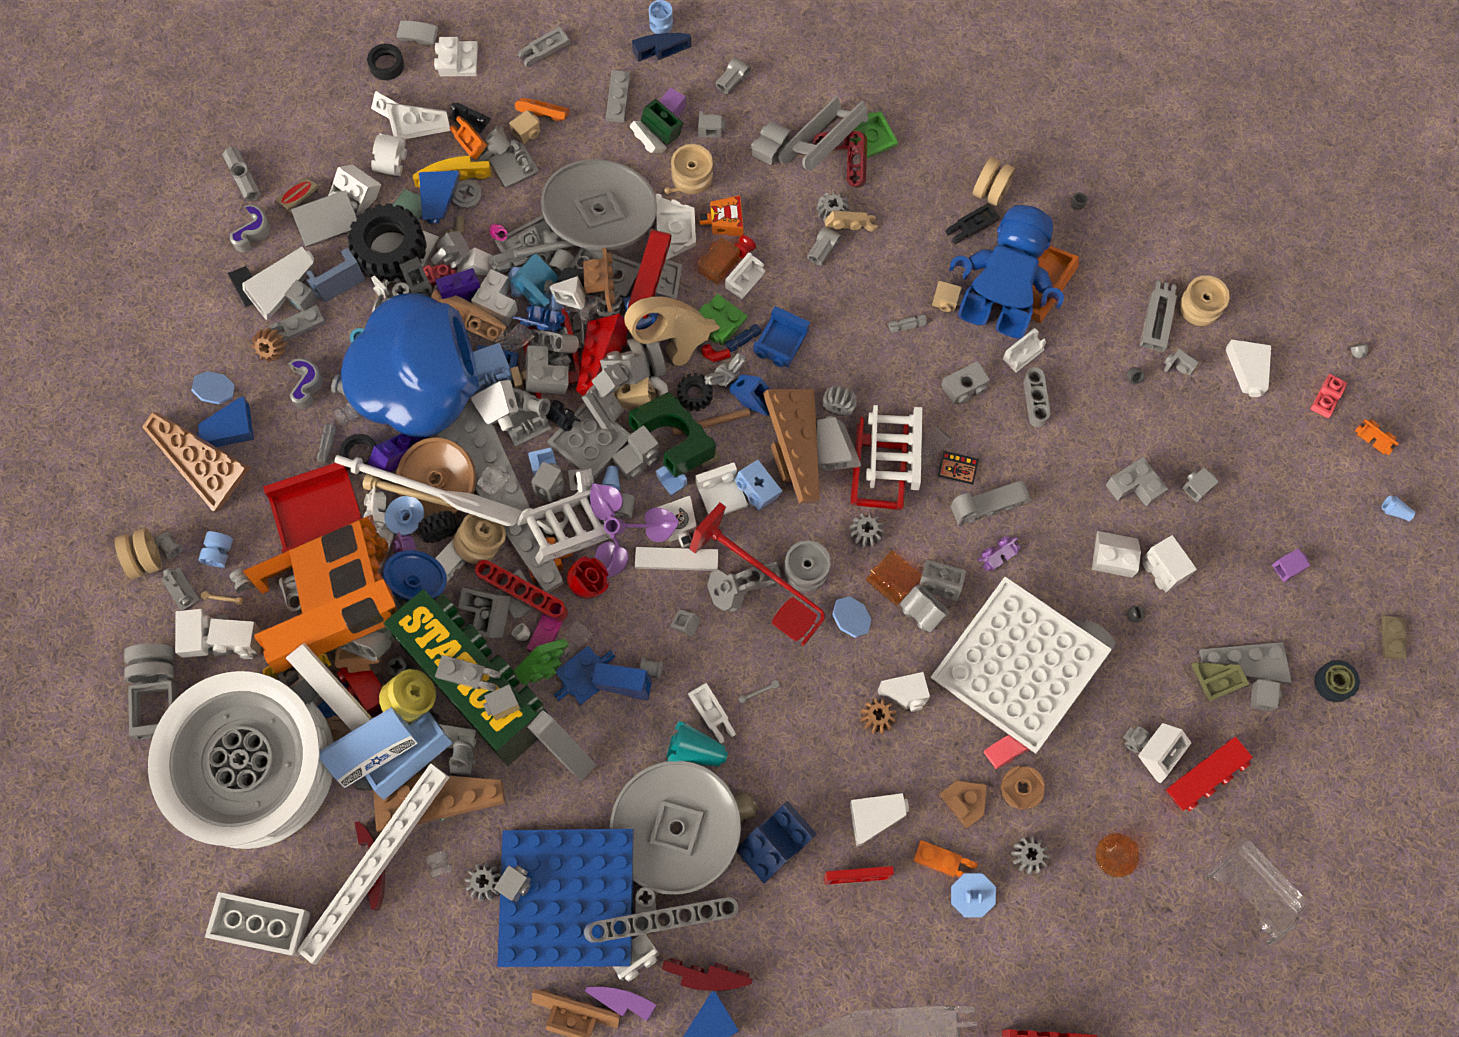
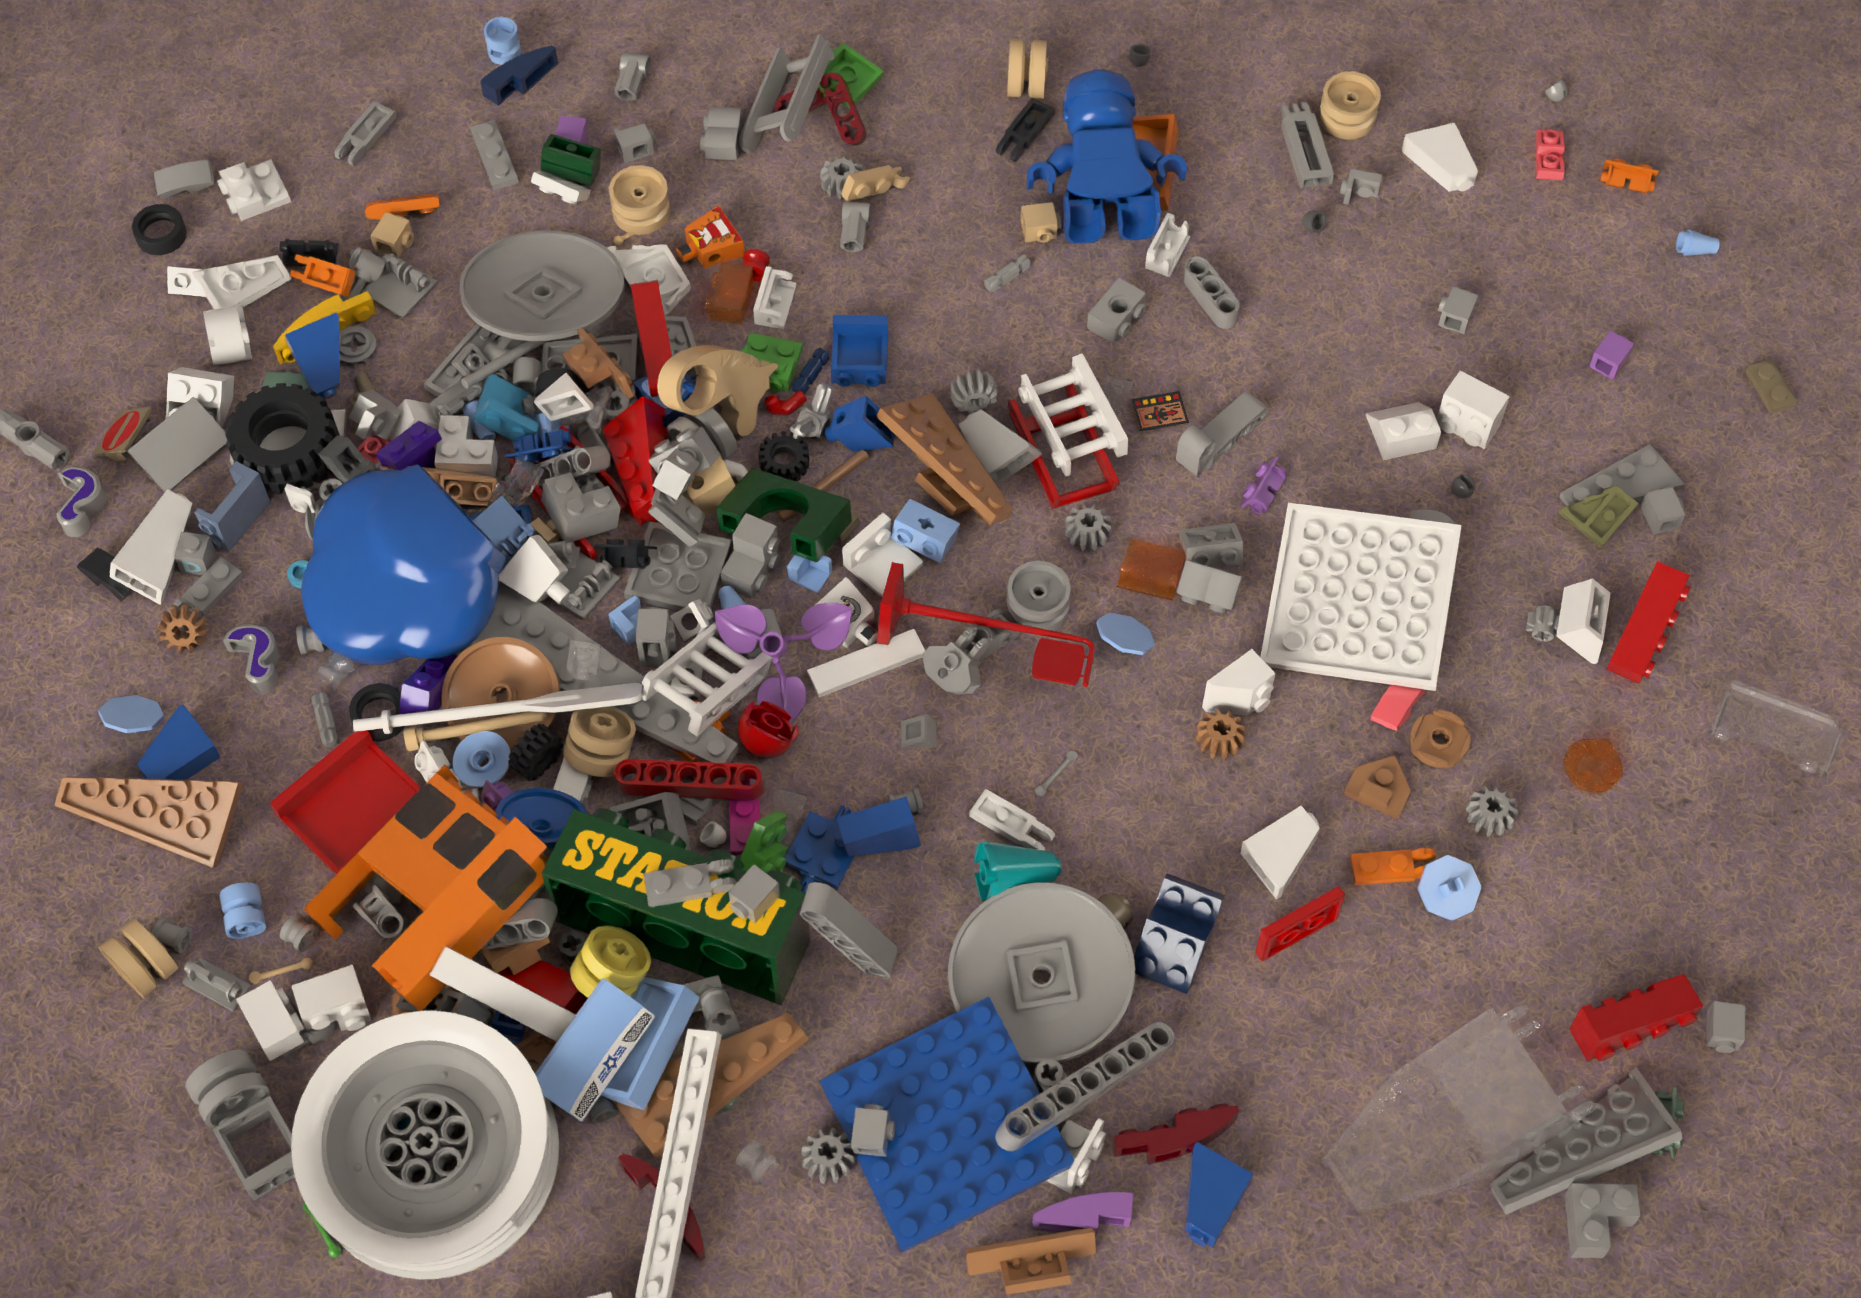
camera: 25 degrees left, 10 degrees down
(494, 231) = (425, 369): dark pink pin -> none
(537, 405) = (589, 551): light grey bush -> none
(1140, 479) = (1385, 333): light grey brick -> none
(1347, 676) = (1735, 459): wheel -> none

